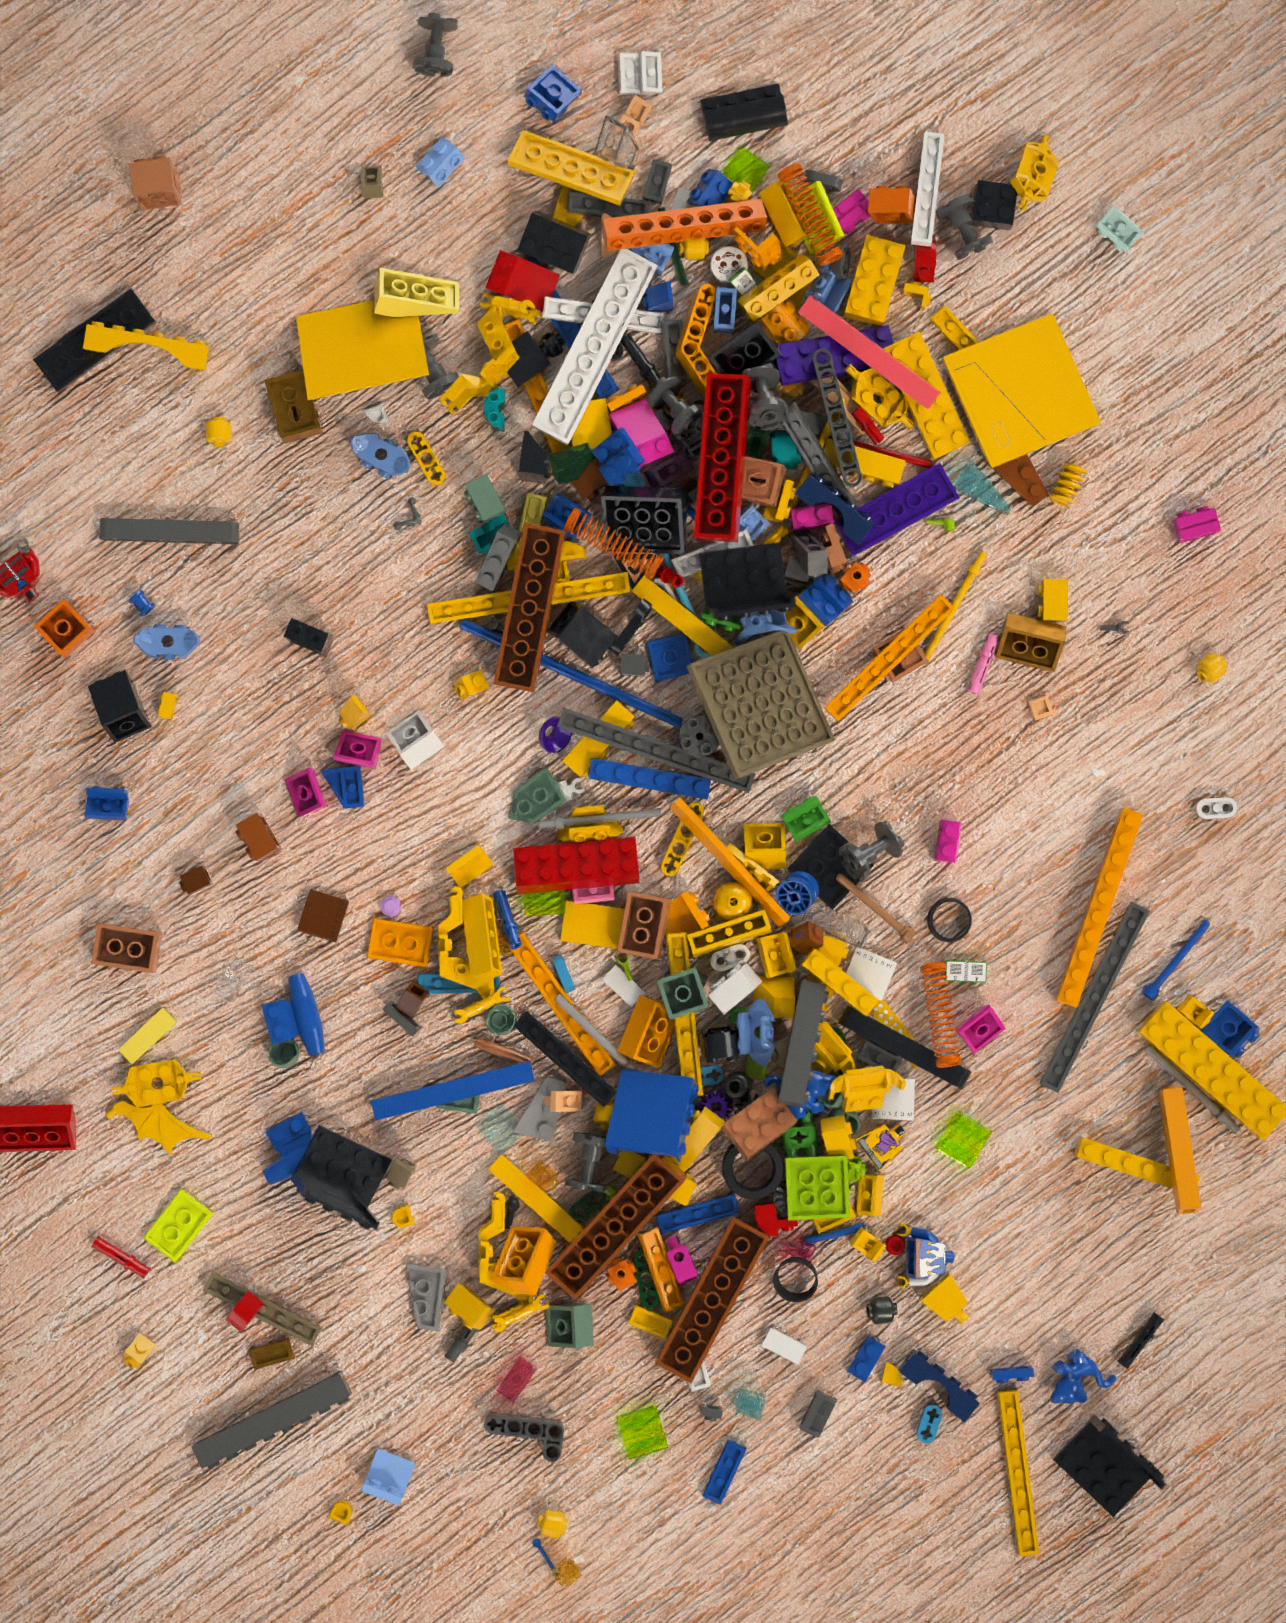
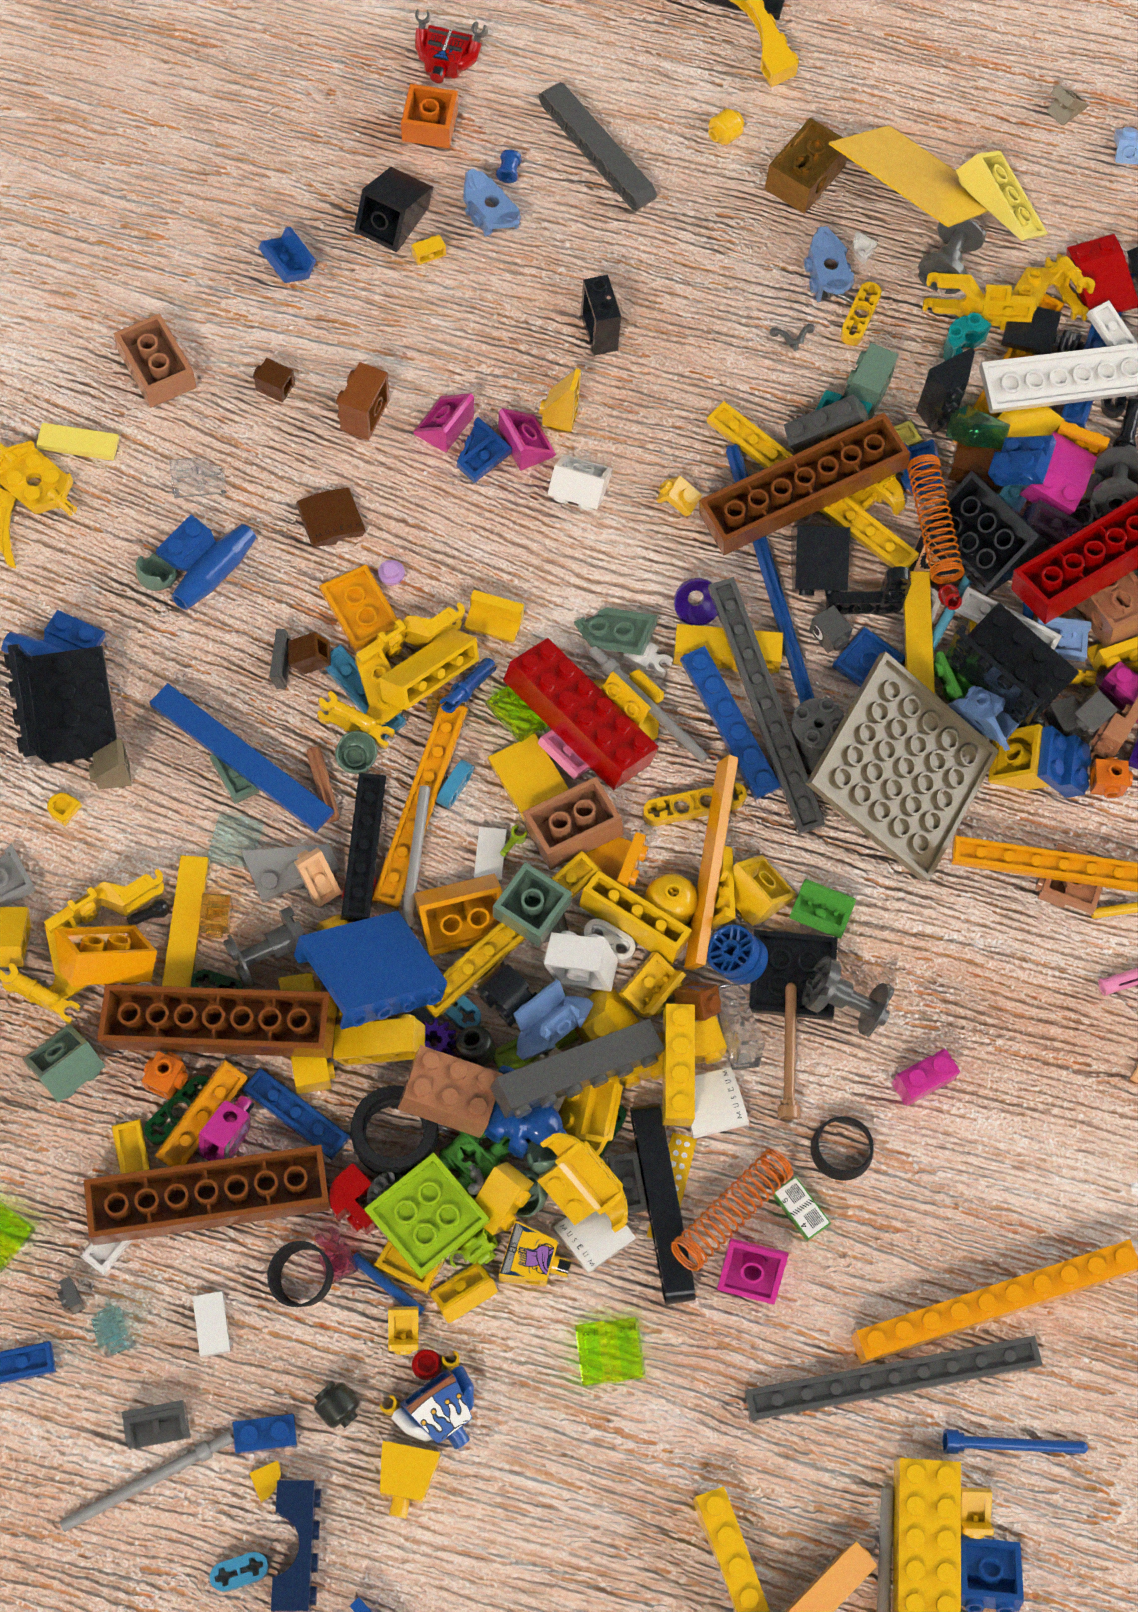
camera: 45 degrees right, 20 degrees down
(819, 1143) = (477, 1175): none -> dark grey piece
(850, 1399) = (202, 1451): none -> light grey bar

